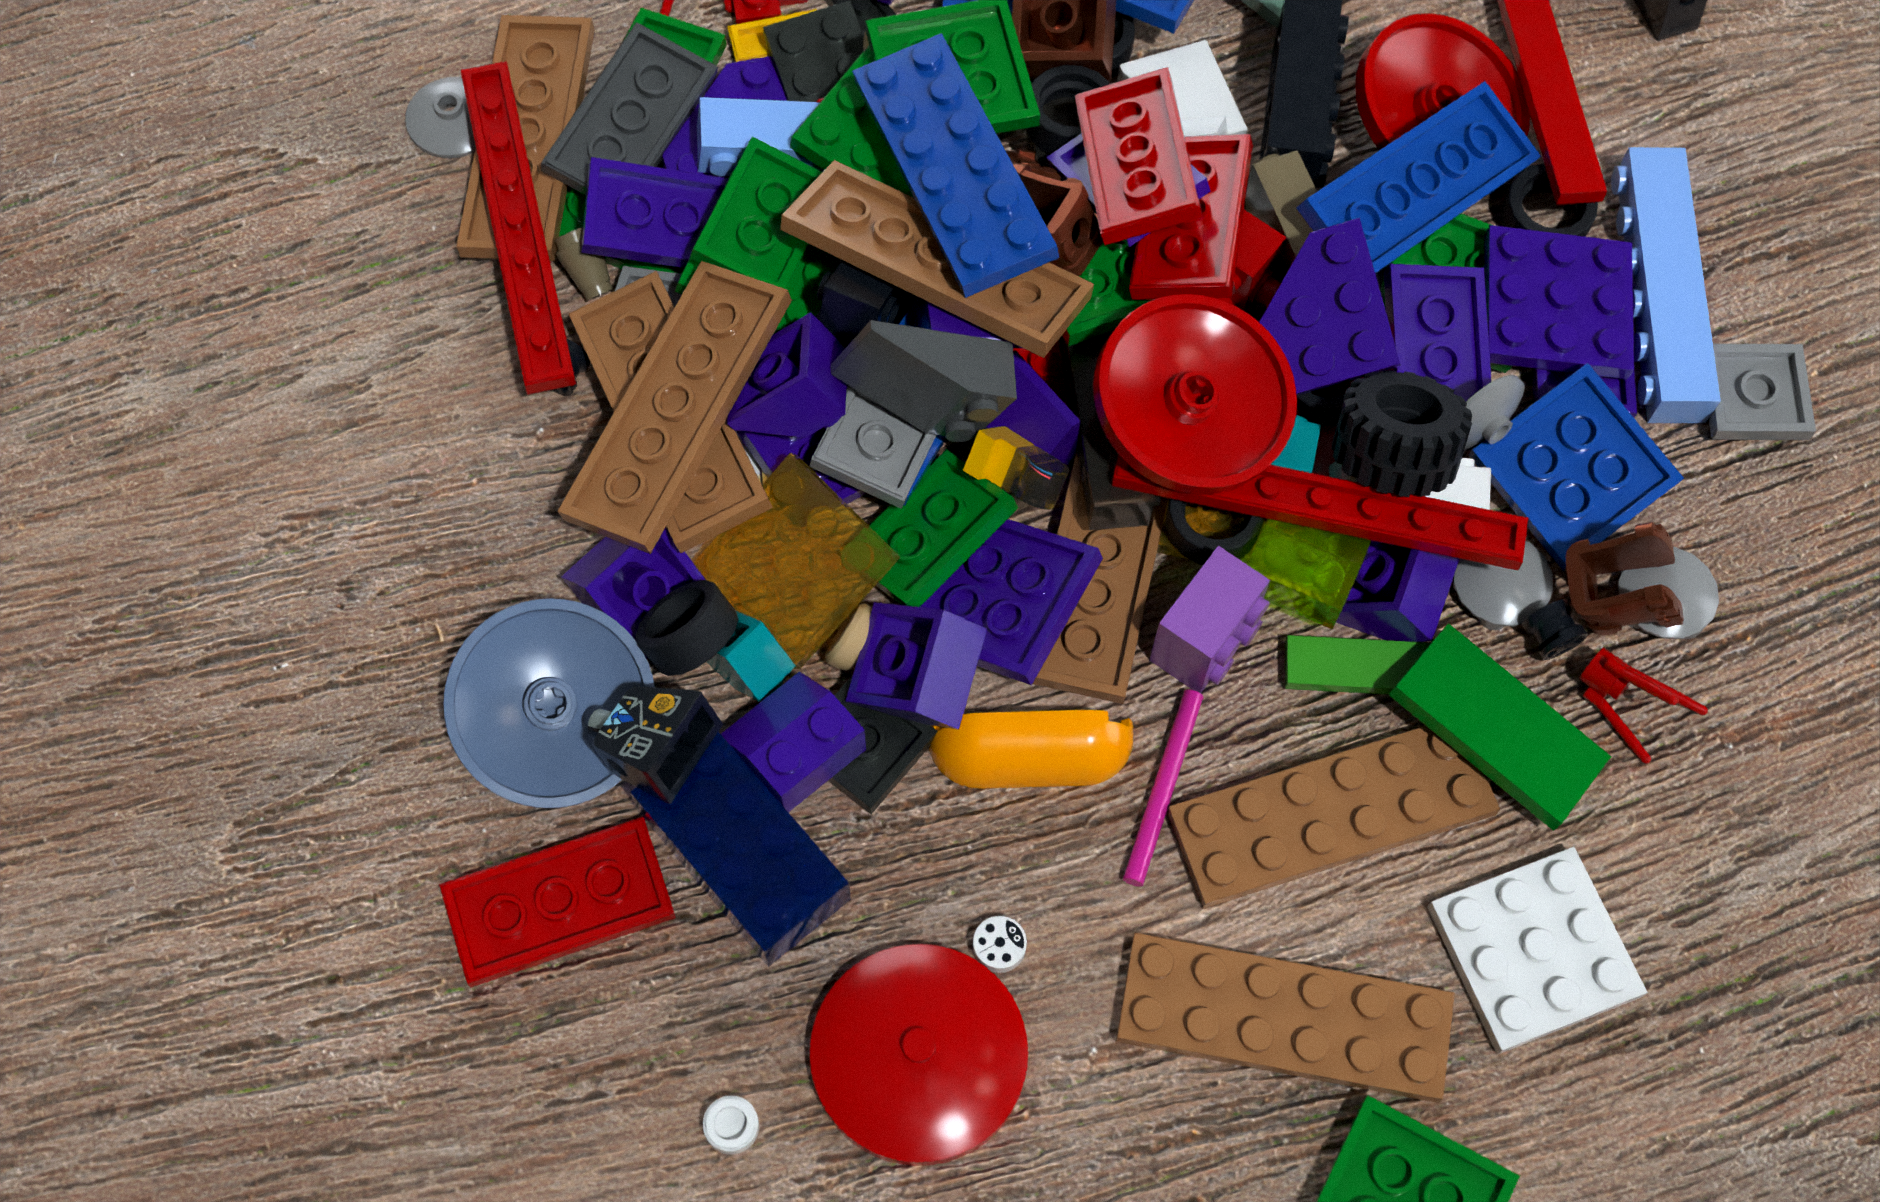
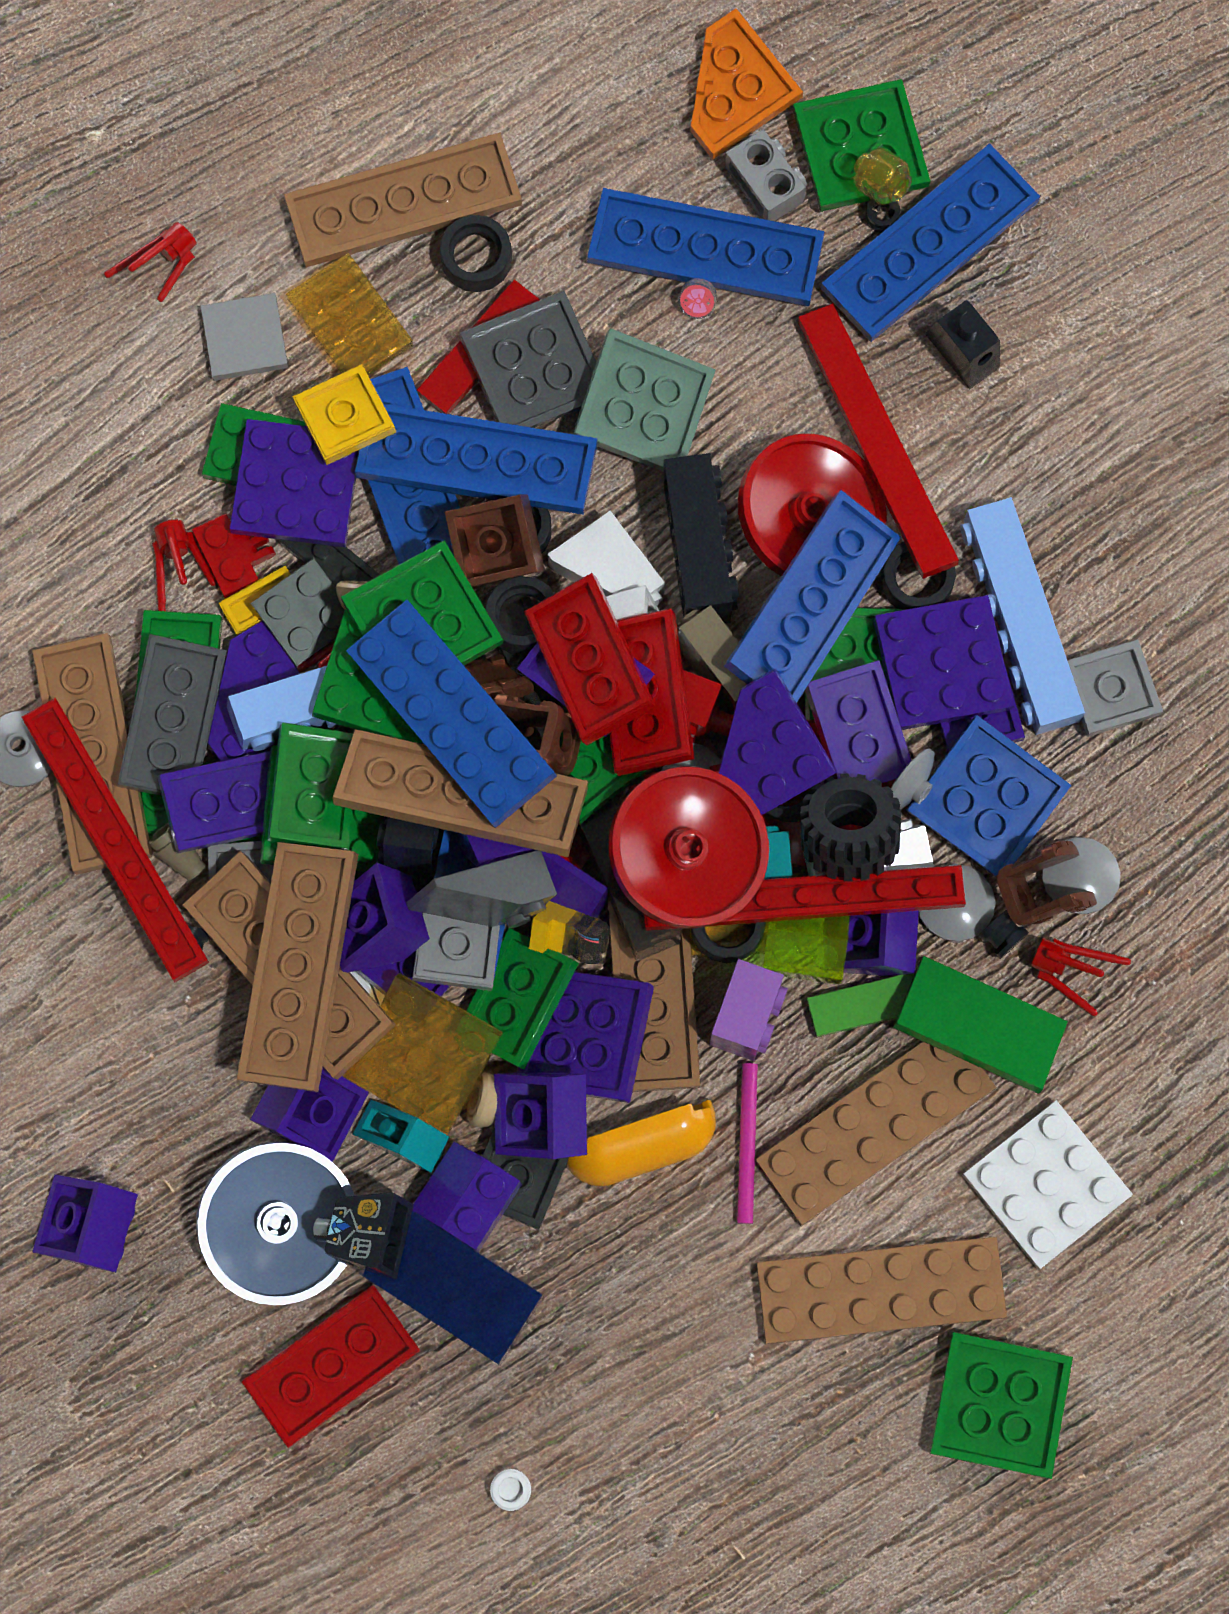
camera: 15 degrees left, 10 degrees up
(323, 640) = (85, 1223): none -> dark purple slope
(686, 628) = (376, 1143): black tyre -> none
(918, 1054) = (628, 1397): red dish -> none
(999, 944) = (662, 1299): white tile -> none

